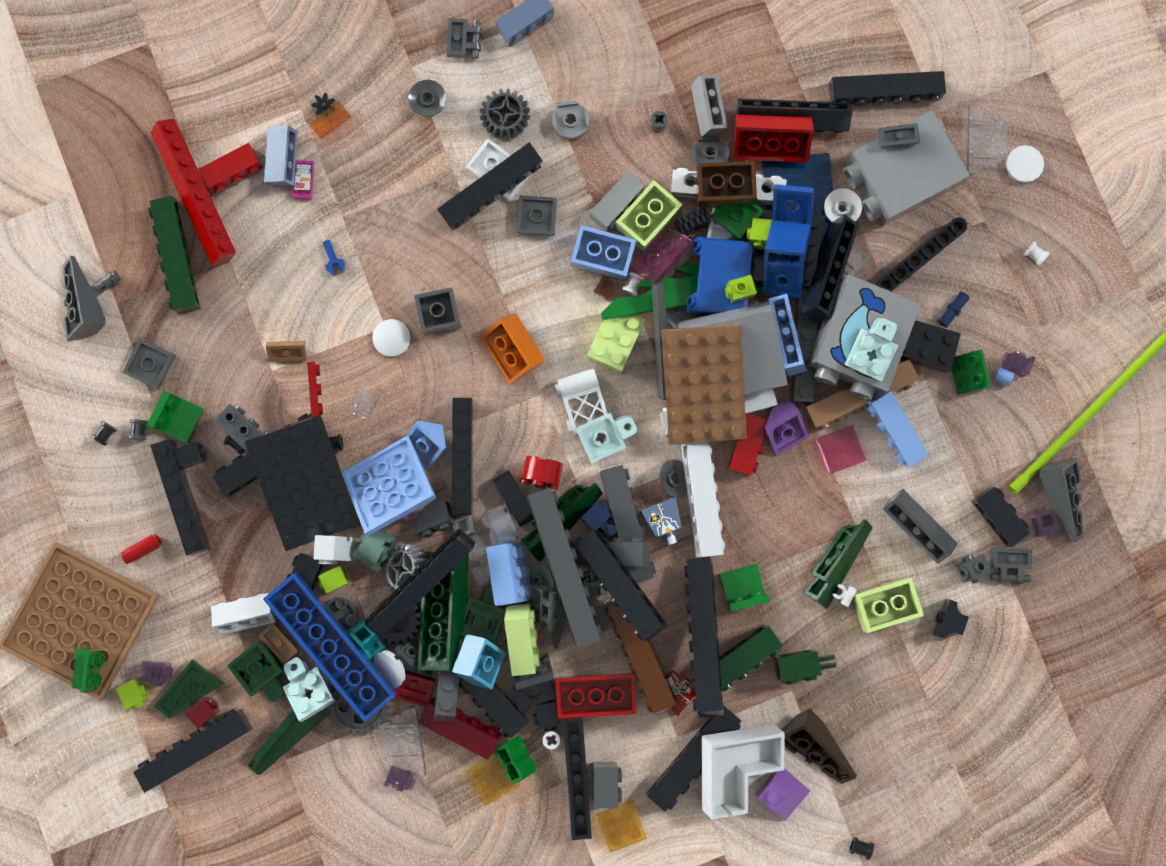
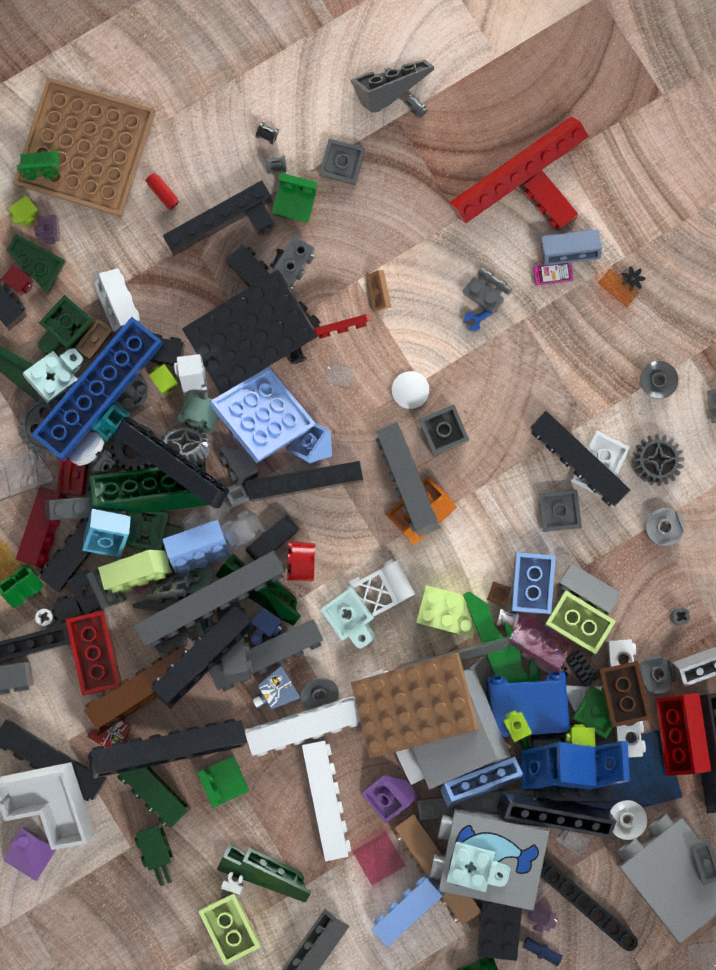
camera: 90 degrees right, 0 degrees up
(174, 255) = (453, 164): dark green brick -> none
(311, 250) = (483, 295): none -> dark grey plate
(481, 352) = (408, 480): none -> dark grey brick
(746, 450) = (358, 761): red brick -> none
(778, 490) = (325, 800): none -> white brick
(812, 739) = (86, 874): dark brown wedge -> none
(927, 300) = (542, 918): none -> clear purple brick

